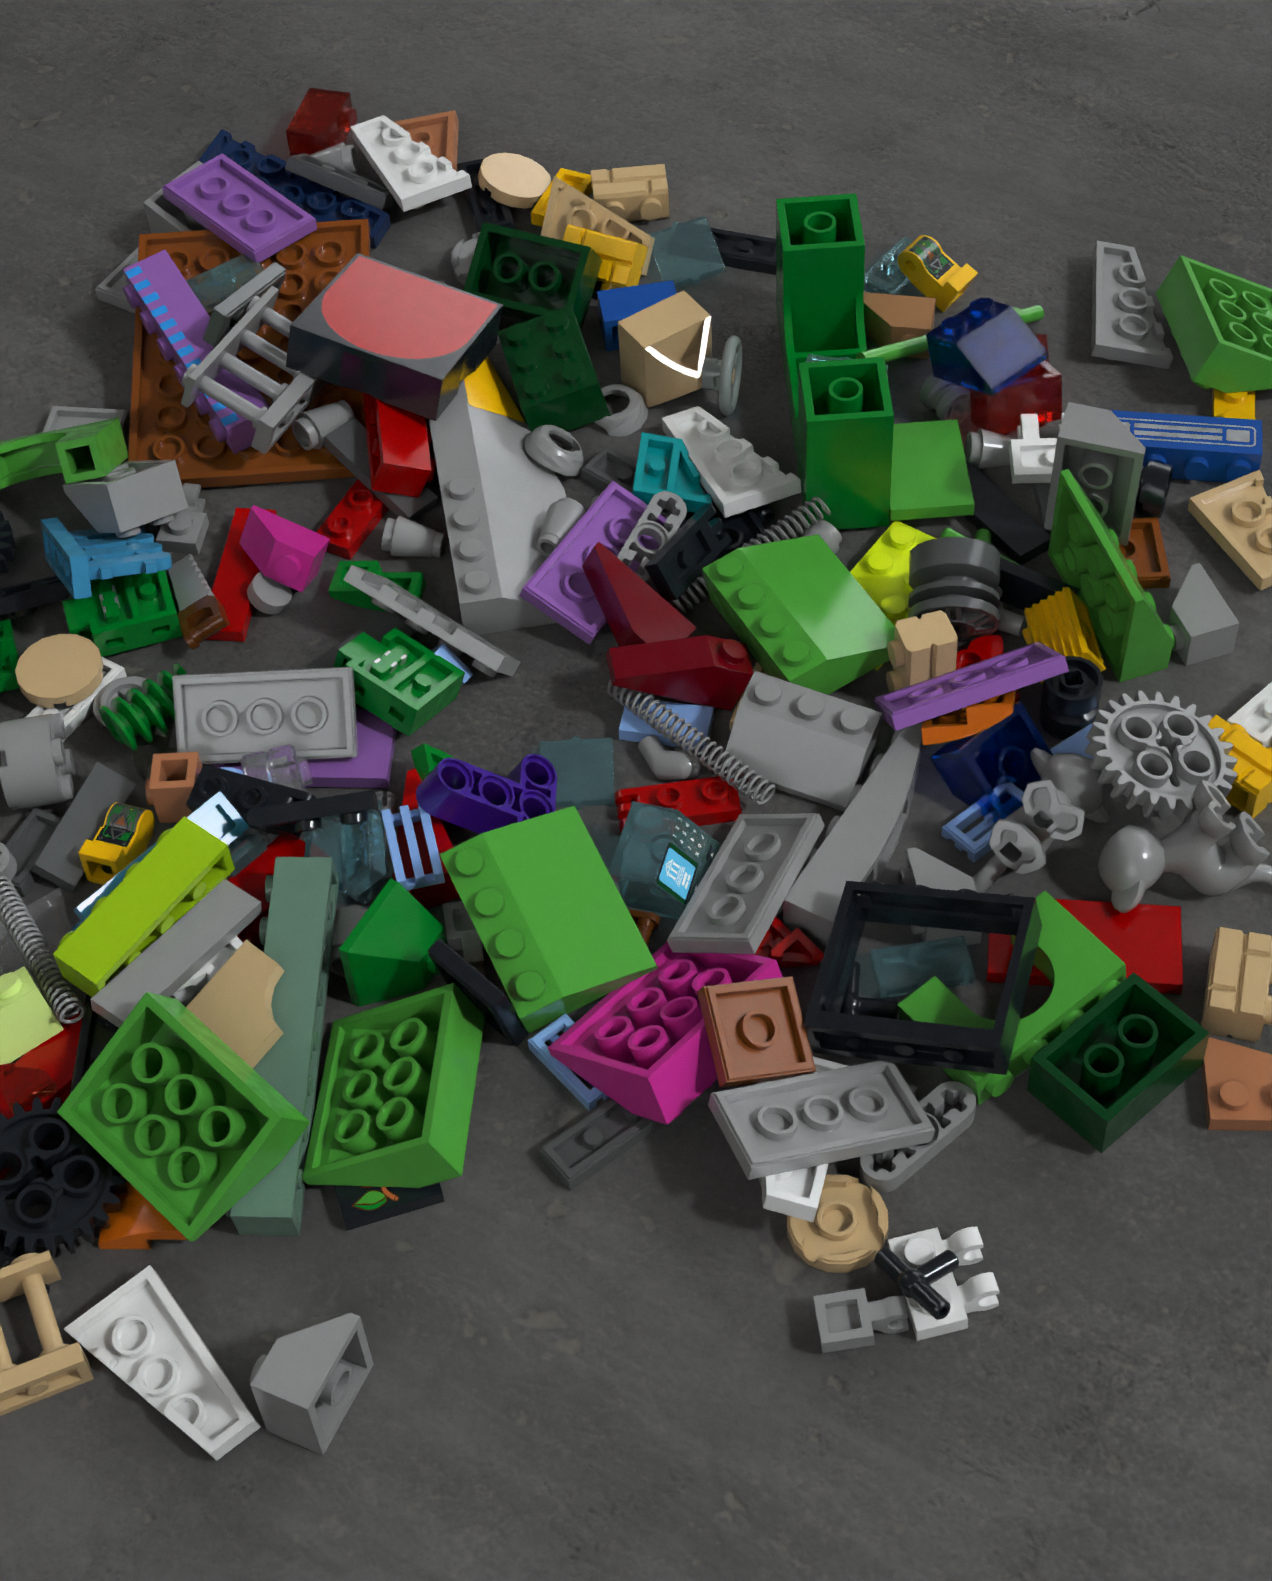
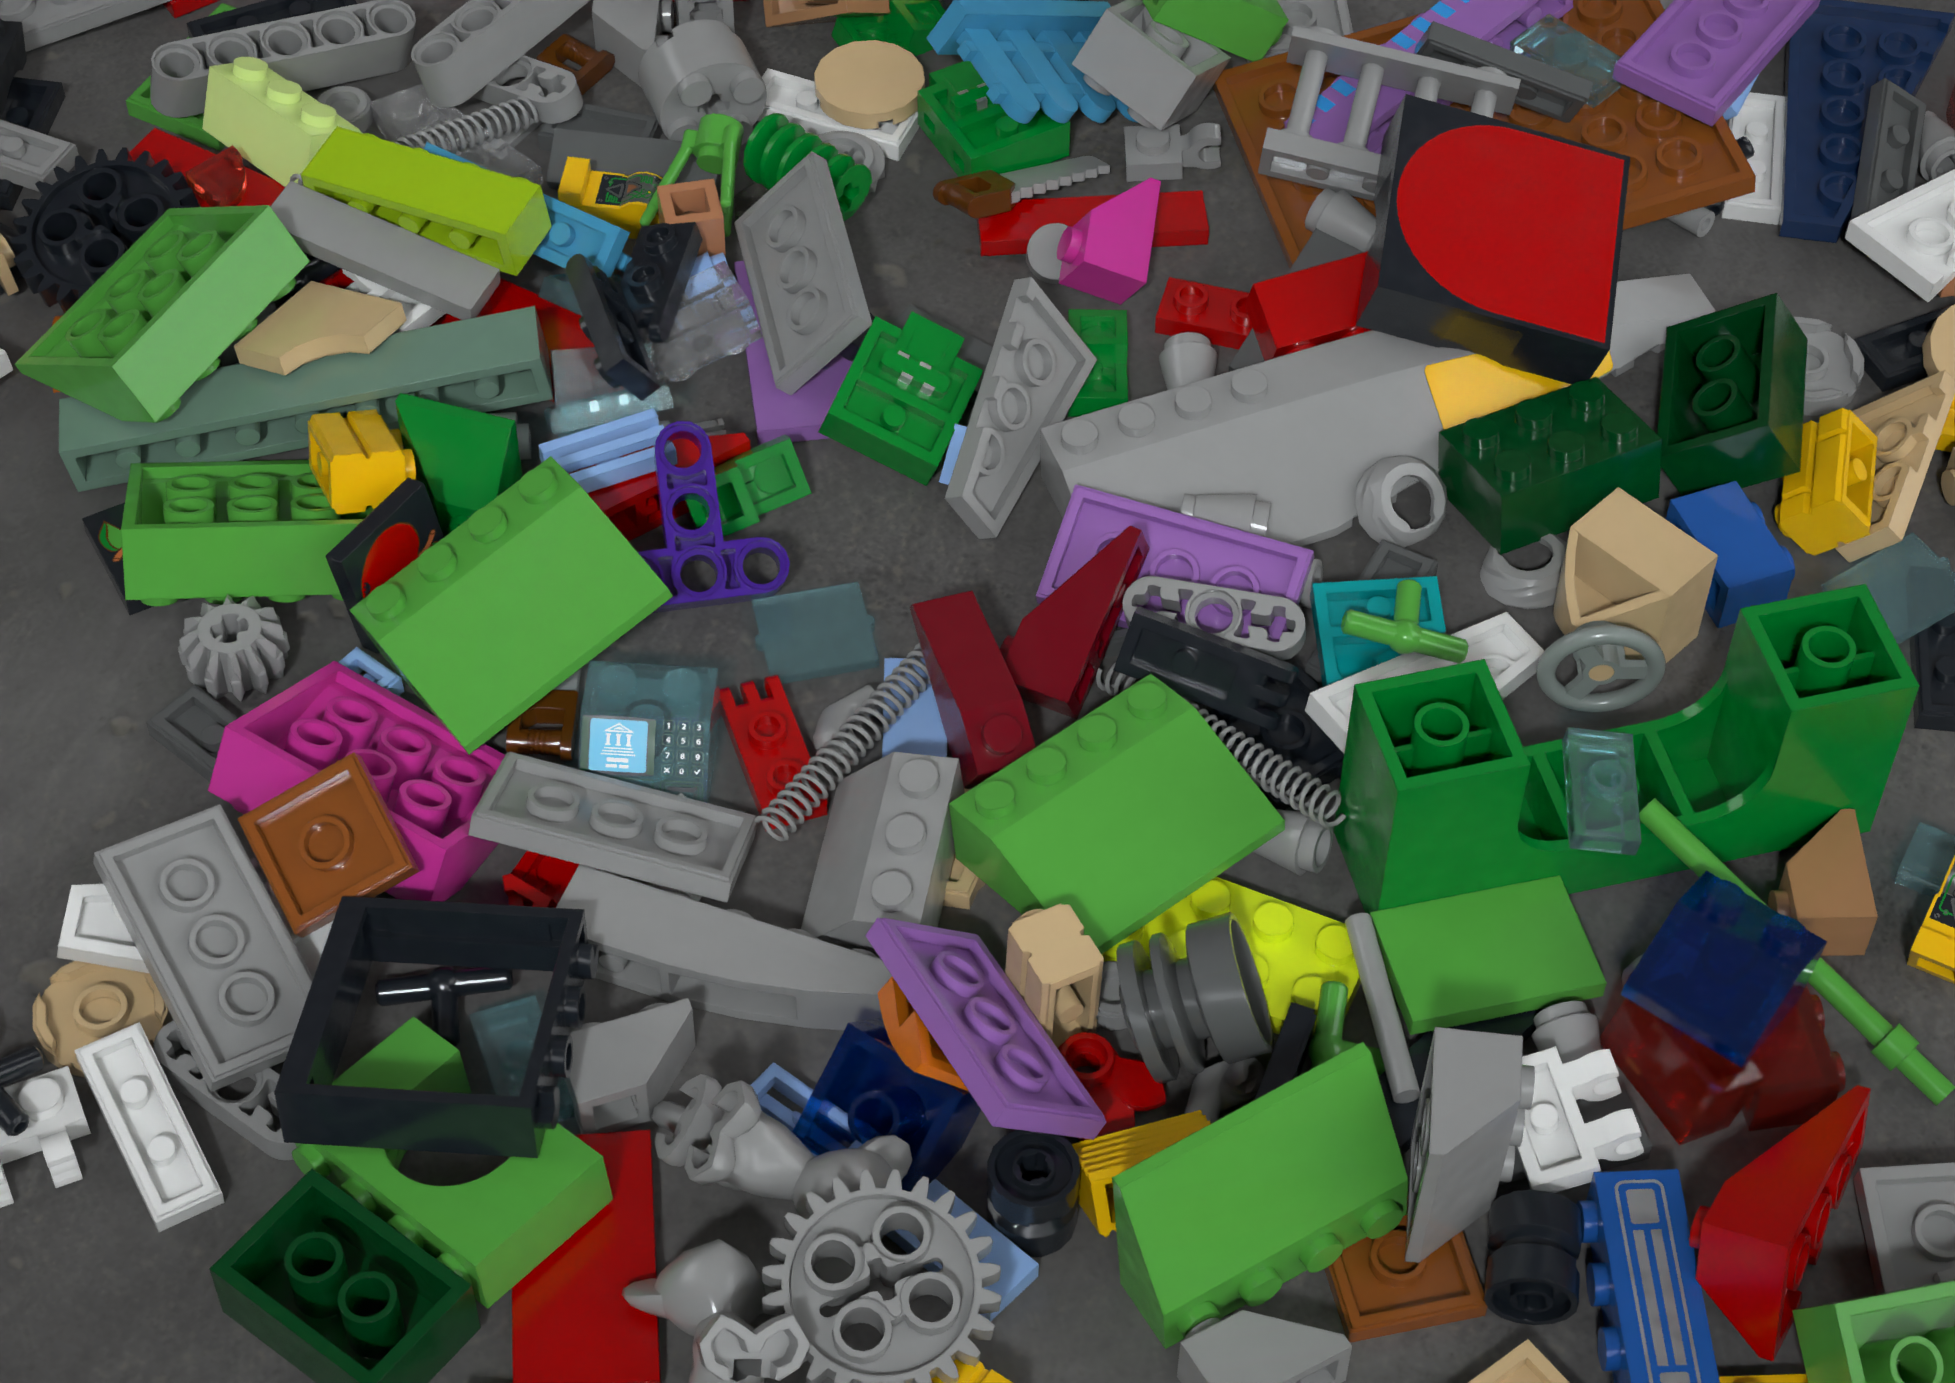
camera: 75 degrees right, 0 degrees up
(107, 755) = (717, 152): none -> bright green plant
(376, 1000) = (357, 459): none -> yellow brick
(515, 1115) = (234, 648): none -> light grey gear
(685, 453) = (1404, 632): none -> bright green piece
(947, 1188) = (149, 1127): none -> white tile
(957, 519) = (1382, 1008): none -> light grey bar
(1136, 371) = (1774, 1222): none -> red wedge

